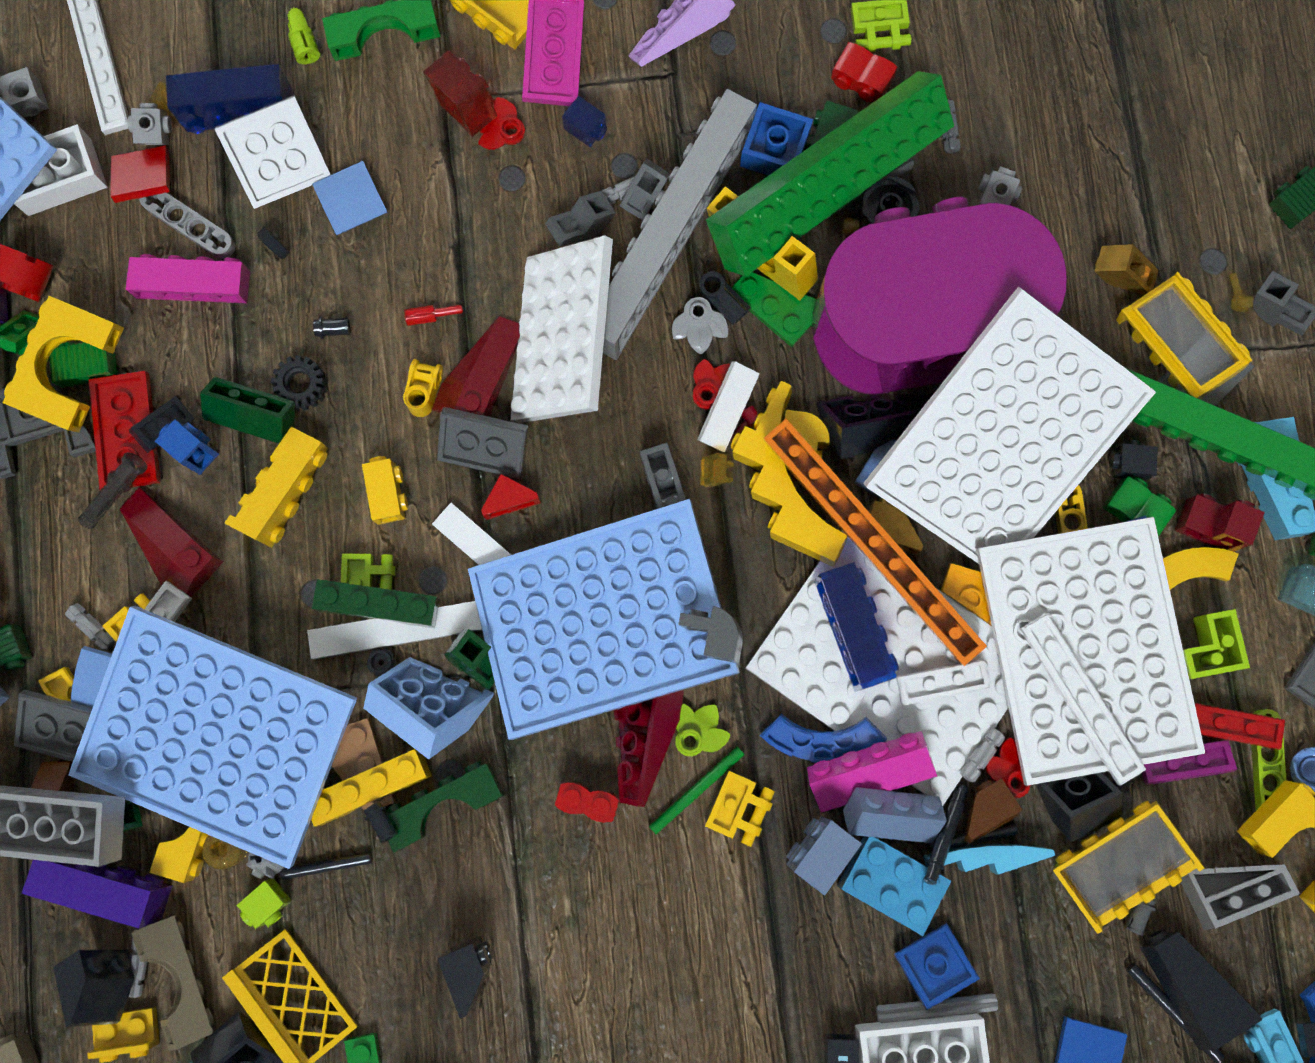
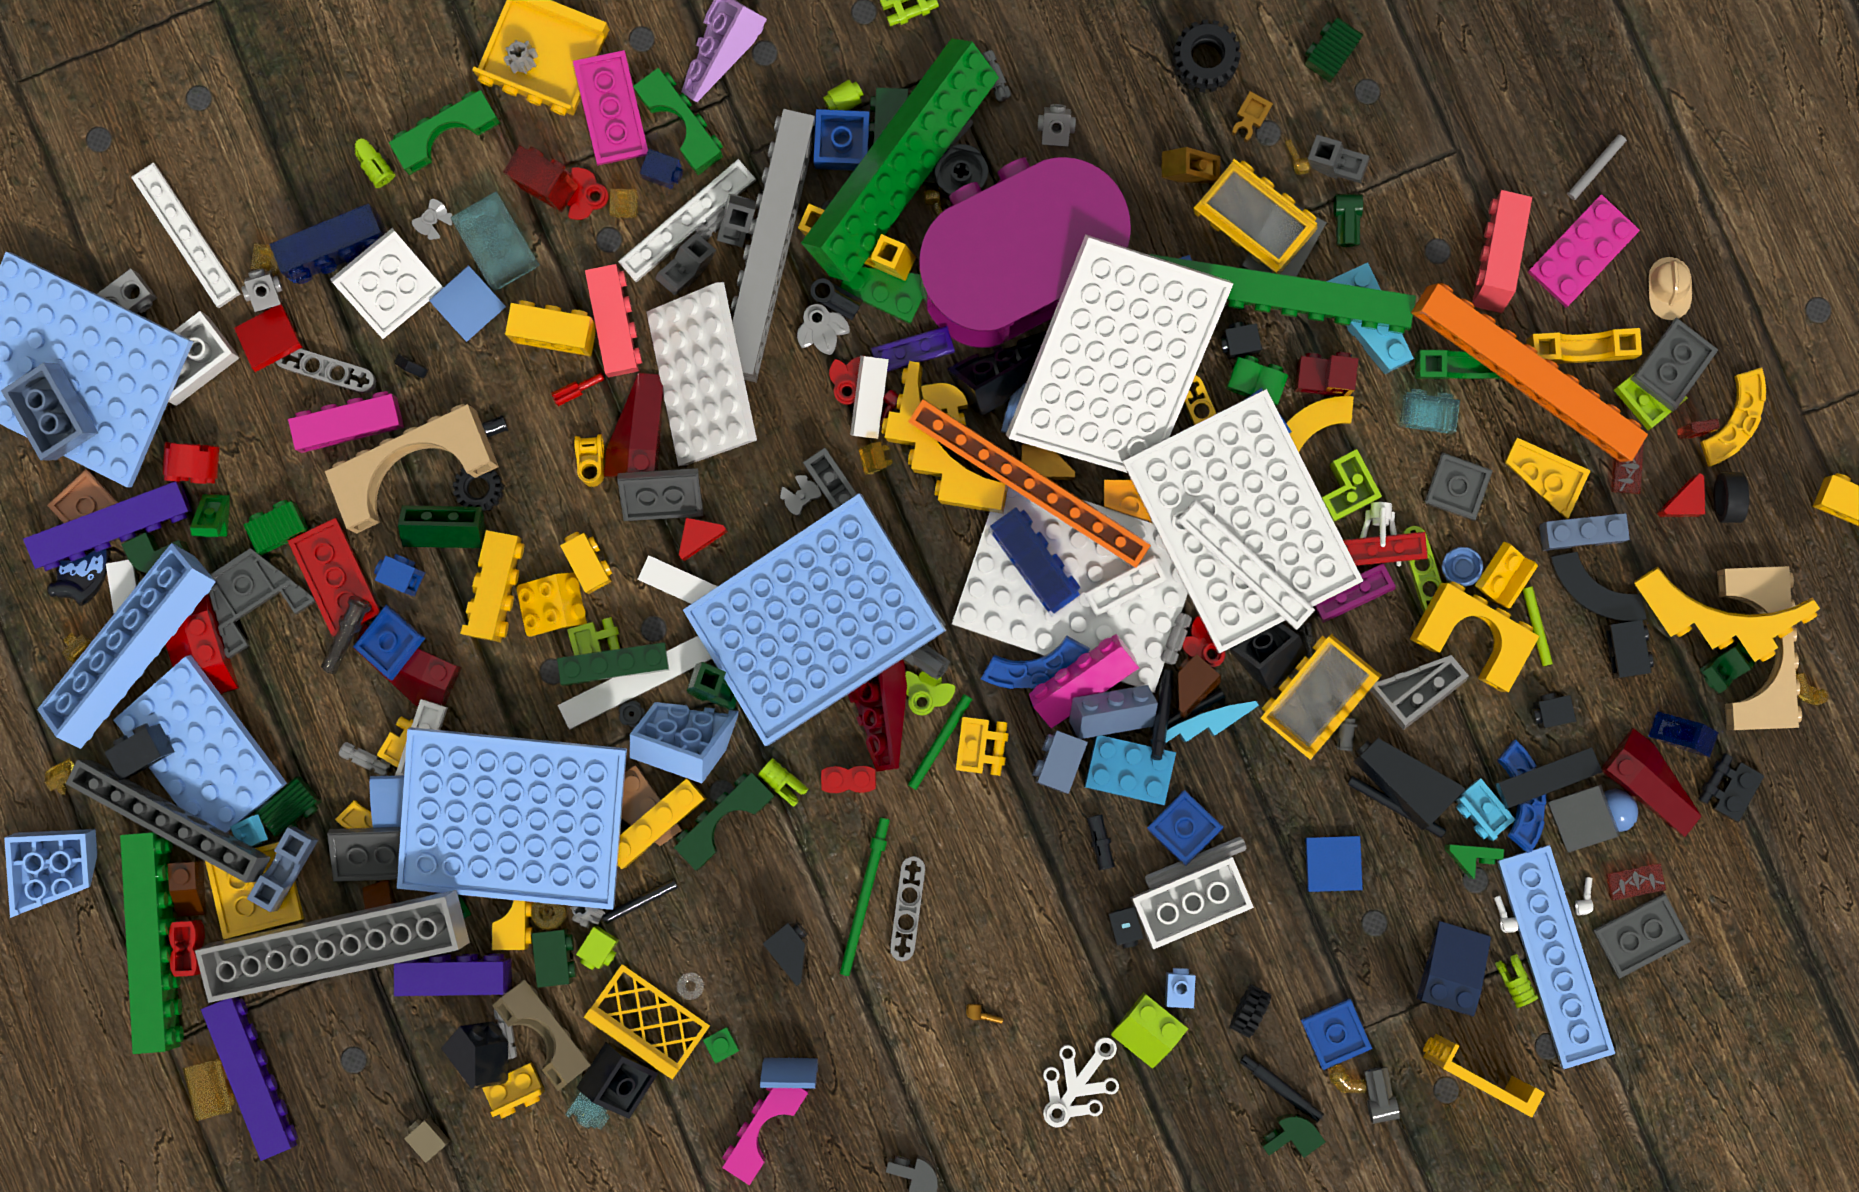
camera: 15 degrees left, 5 degrees up
(30, 386) = (244, 566): yellow arch -> none
(148, 429) = (363, 566): black plate -> none
(154, 512) = (389, 642): none -> blue tile
(181, 338) = (358, 480): none -> tan arch
(212, 901) = (553, 957): none -> dark green brick
(333, 108) = (435, 211): none -> light grey piece
(335, 522) = (551, 603): none -> yellow bracket
(341, 979) = (684, 992): none -> clear plate
(380, 822) = (677, 848): black pin -> none
(396, 144) = (495, 241): none -> clear light blue brick
(423, 243) = (551, 328): none -> yellow brick
(489, 255) = (612, 320): none -> coral brick
(512, 776) = (777, 777): none -> lime hinge
(537, 145) = (623, 203): none -> clear yellow tile
(565, 192) = (686, 221): none -> white tile
(597, 882) = (878, 845): none -> green bar
(606, 52) = (659, 96): none -> green arch
(609, 962) = (907, 908): none -> light grey beam
(628, 490) = (808, 492): none -> light grey piece
(710, 700) = (929, 661): none -> dark grey piece
(723, 636) = (922, 603): dark grey brick -> none
(791, 100) = (843, 96): none -> lime brick
(796, 372) = (915, 348): none -> dark purple tile
(839, 953) = (1100, 842): none -> black pin
(863, 72) = (902, 48): red brick -> none
(1183, 146) = (1211, 35): none -> black tyre
(1203, 236) = (1252, 113): none -> pearl gold plate
(1237, 688) = (1382, 516): none -> white plant
(1279, 362) = (1348, 211): none -> dark green piece

